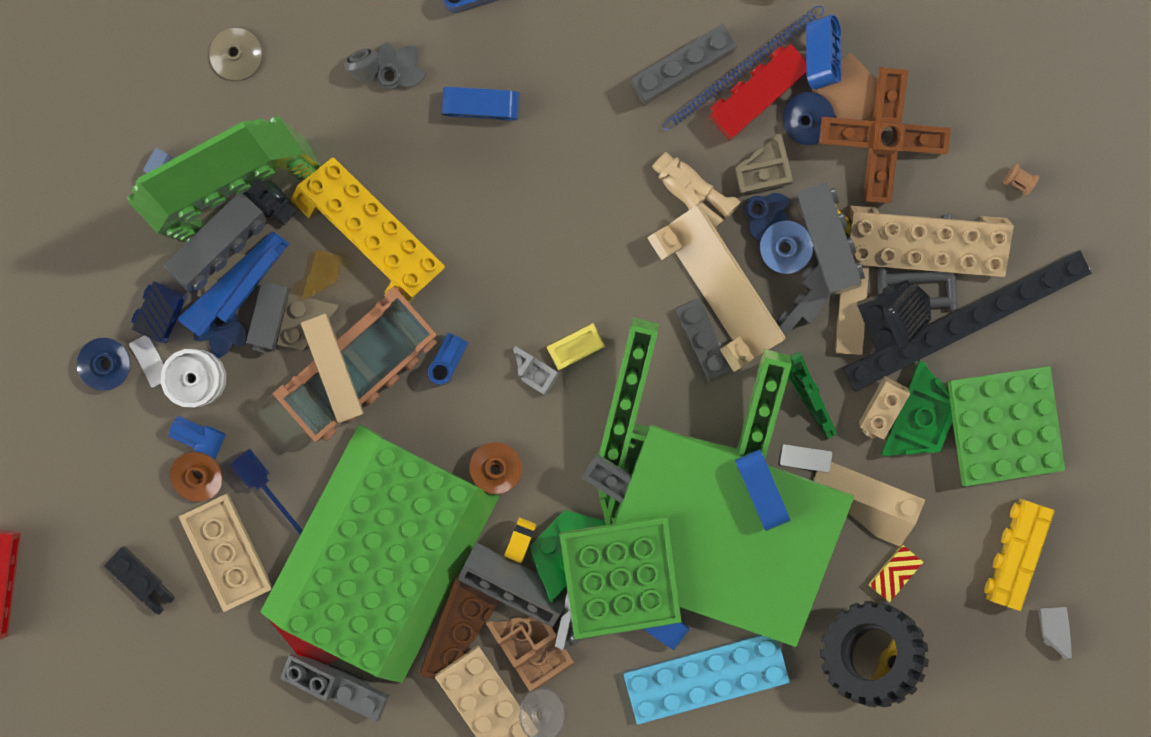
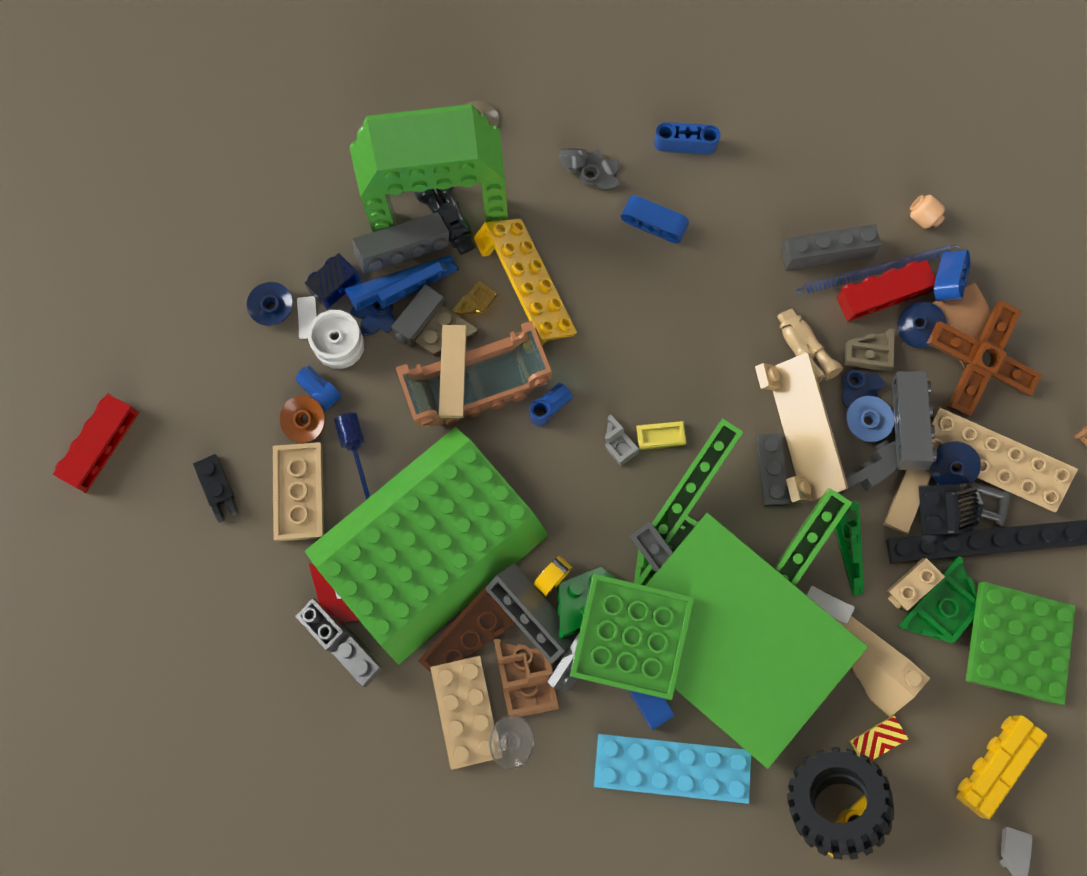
camera: 20 degrees right, 15 degrees down
(499, 456) = (559, 499): dark orange dish -> none
(762, 490) = (788, 606): blue beam -> none
(887, 256) = (954, 453): none -> dark blue dish

